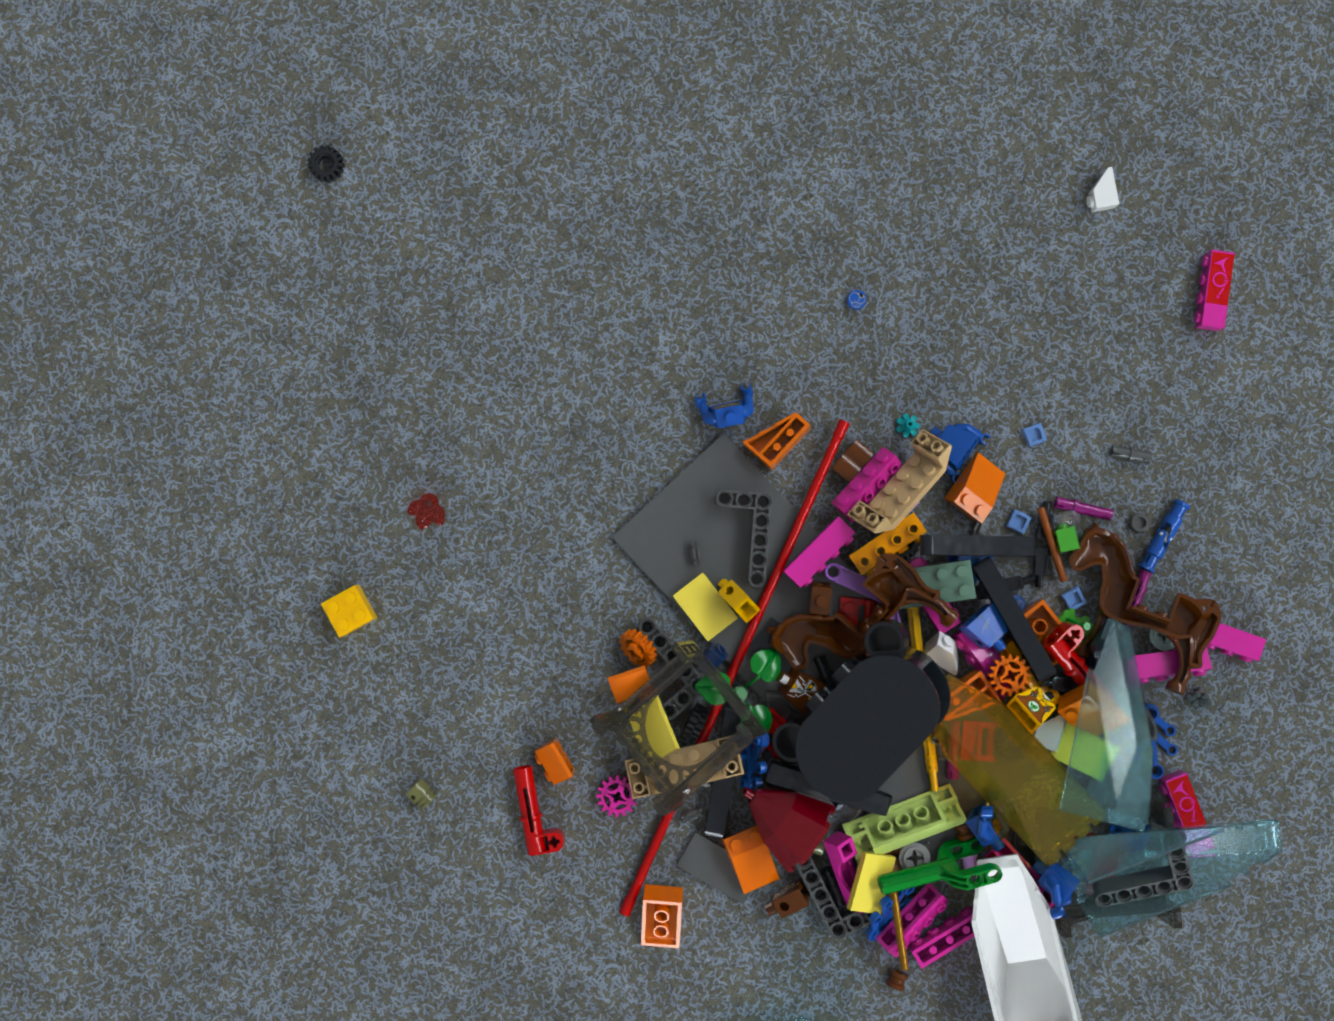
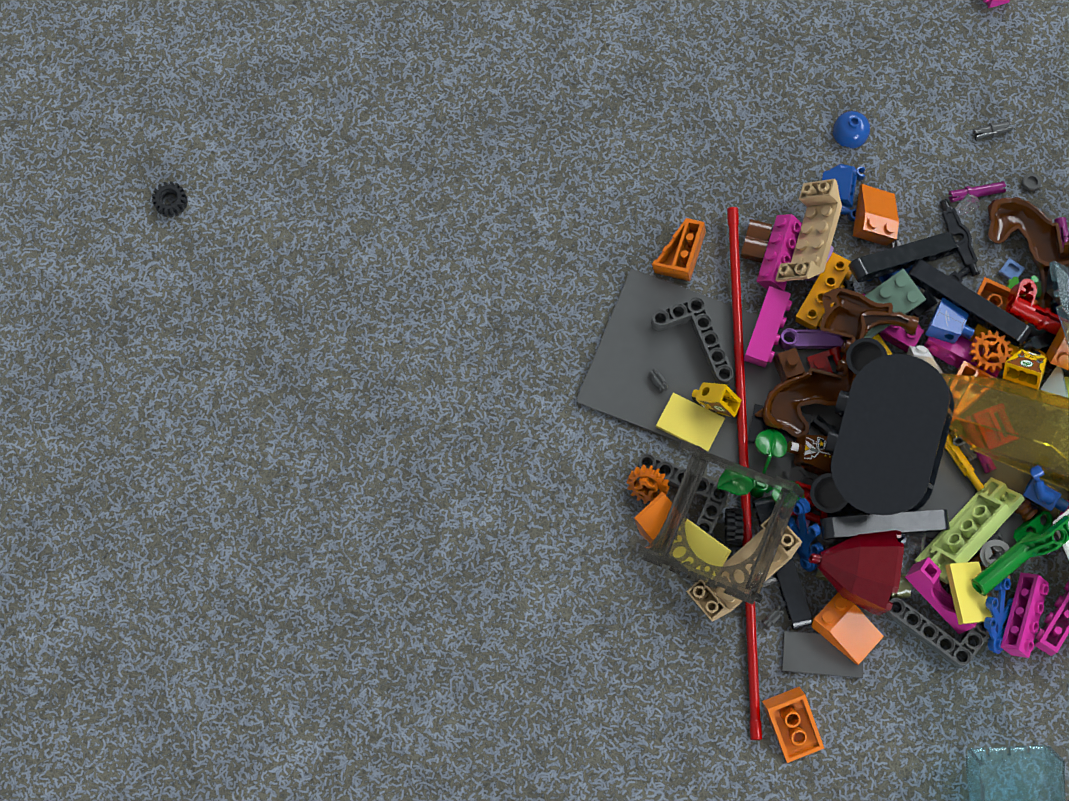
camera: 20 degrees left, 15 degrees down
(349, 610) = (364, 574): yellow brick -> none
(421, 794) = (510, 714): olive piece -> none
(427, 514) = (395, 458): clear red plate -> none
(534, 836) = (637, 705): red piece -> none
(554, 761) = (621, 623): orange slope -> none
(606, 790) = (695, 639): dark pink gear -> none
(716, 654) = (714, 470): dark blue window -> none
(729, 412) = (625, 248): blue torso -> none
(789, 899) = (908, 644): reddish brown torso -> none
(833, 886) = (928, 612): black pin -> none
(856, 300) = (690, 109): blue tile -> none
(896, 979) = (1040, 679): reddish brown wheel -> none
(899, 931) = (1017, 624): pearl gold bar -> none
(905, 428) = (788, 192): teal plant -> none
(998, 391) = (851, 129): none -> blue cylinder
(1018, 521) = (927, 228): medium blue tile -> none
(1034, 434) = (901, 151): medium blue tile -> none
(1052, 544) = (967, 232): dark orange bar -> none
(1065, 538) = (976, 222): bright green brick -> none
(1161, 540) = (1058, 191): blue piece -> none

